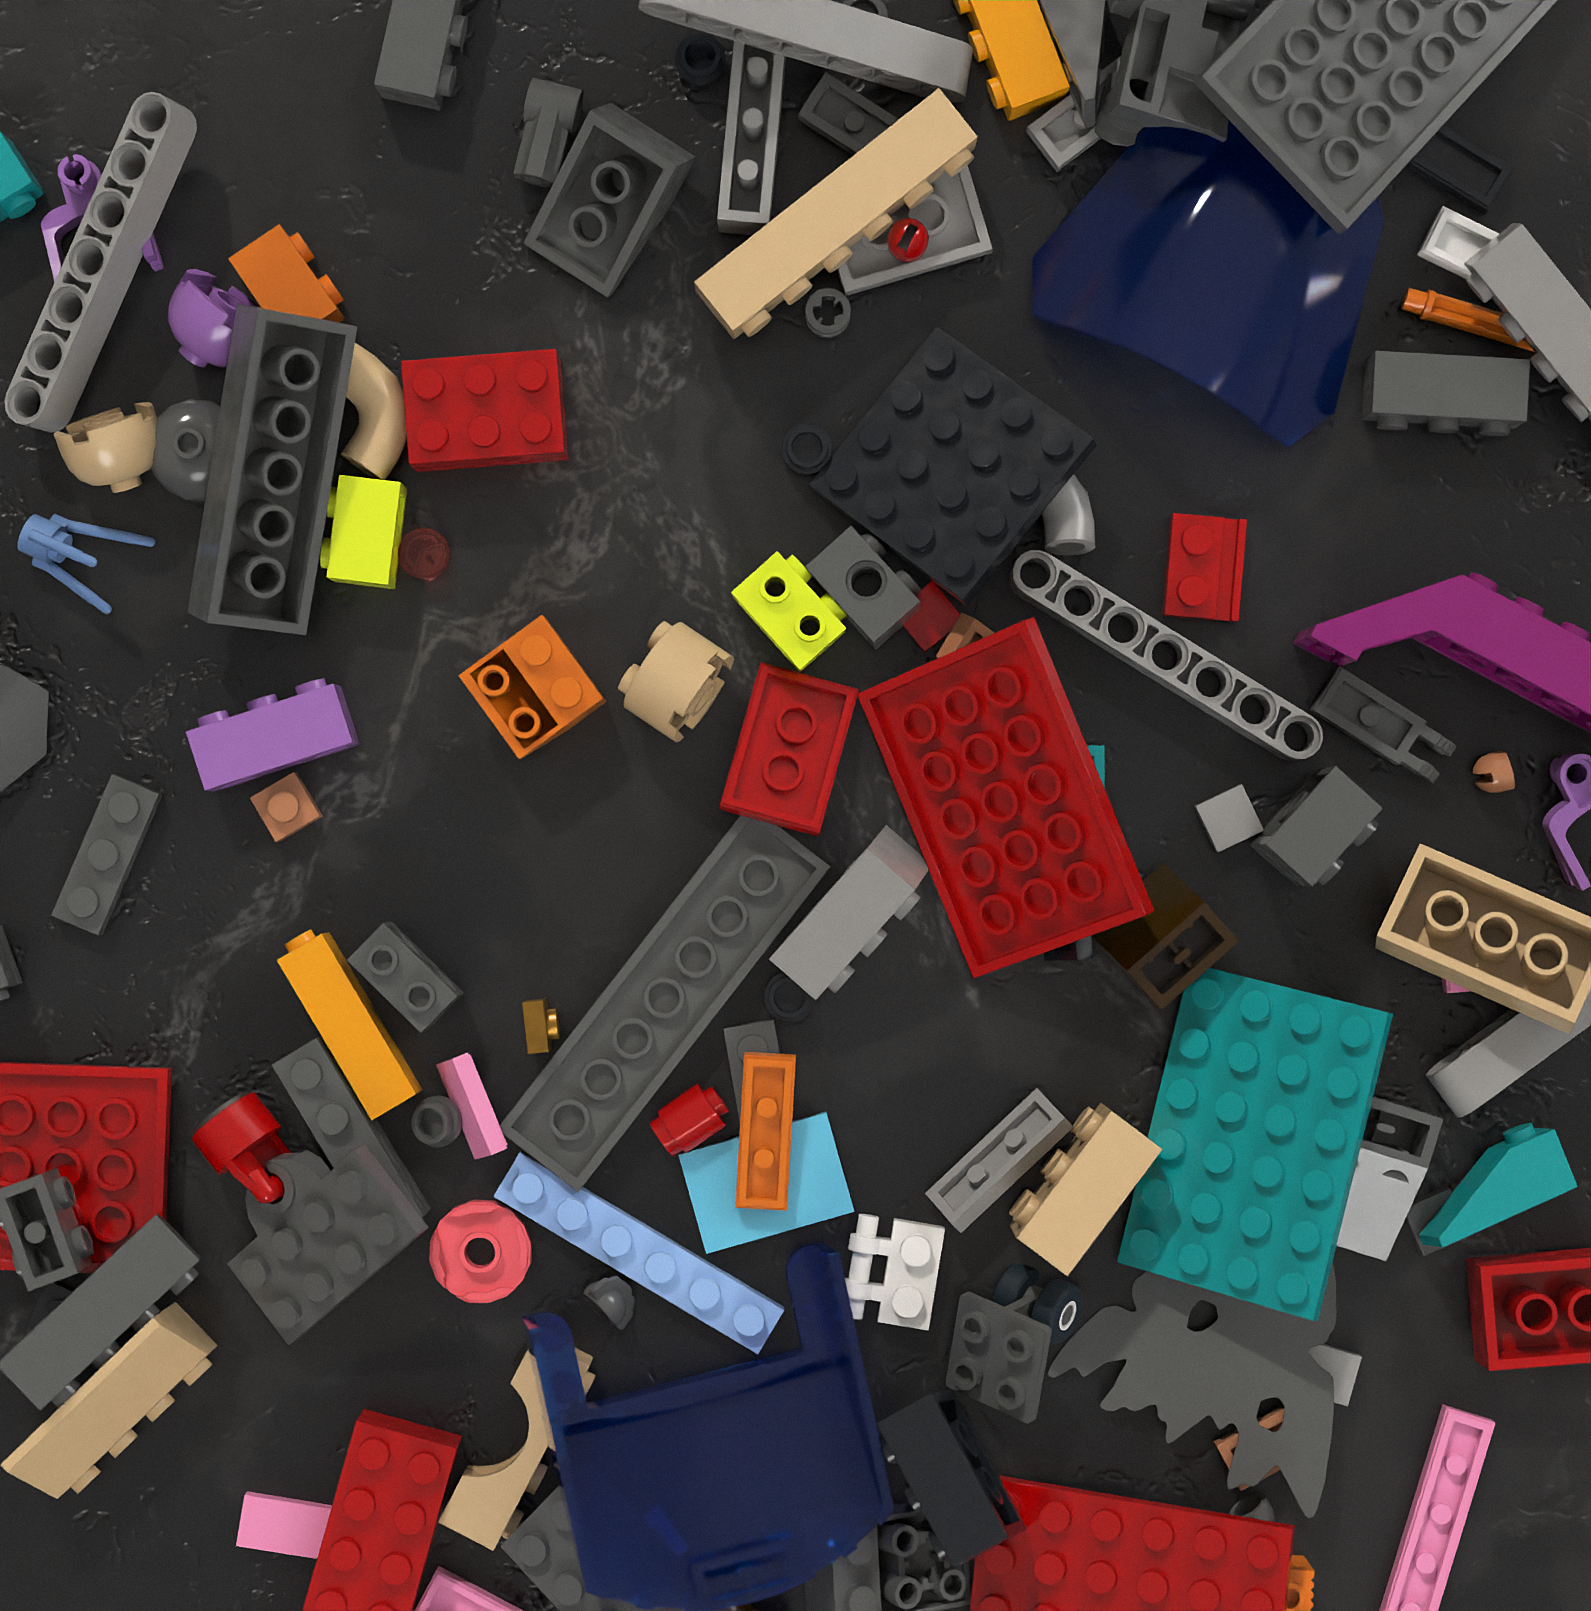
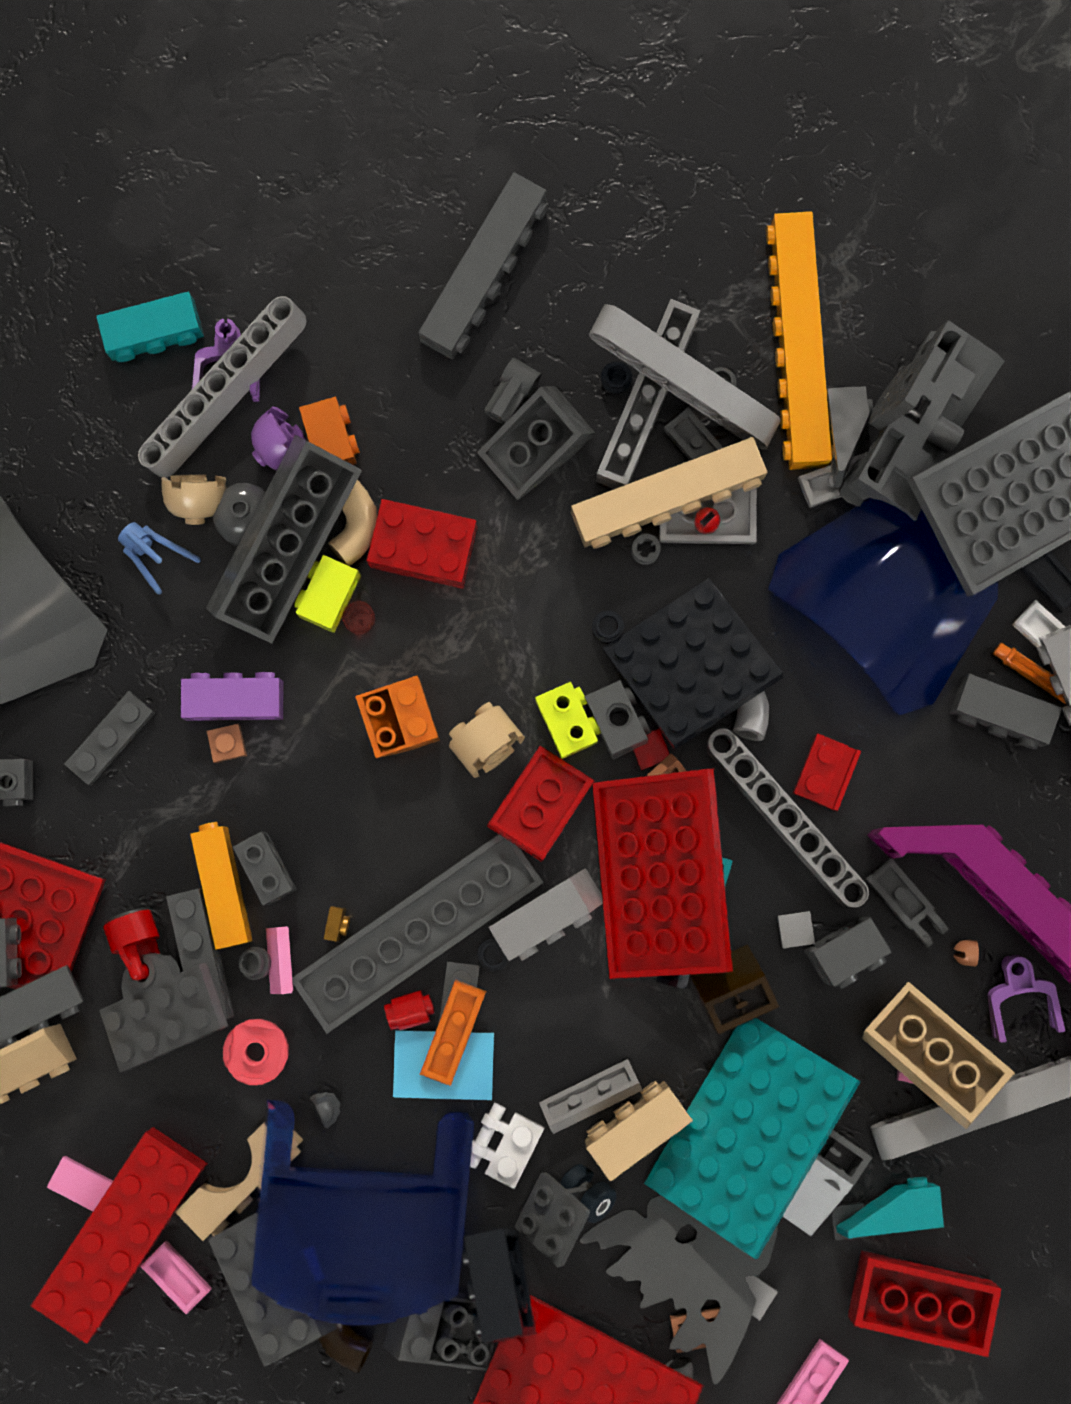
camera: 20 degrees right, 5 degrees down
(640, 1253) = (353, 1084): light blue plate -> none

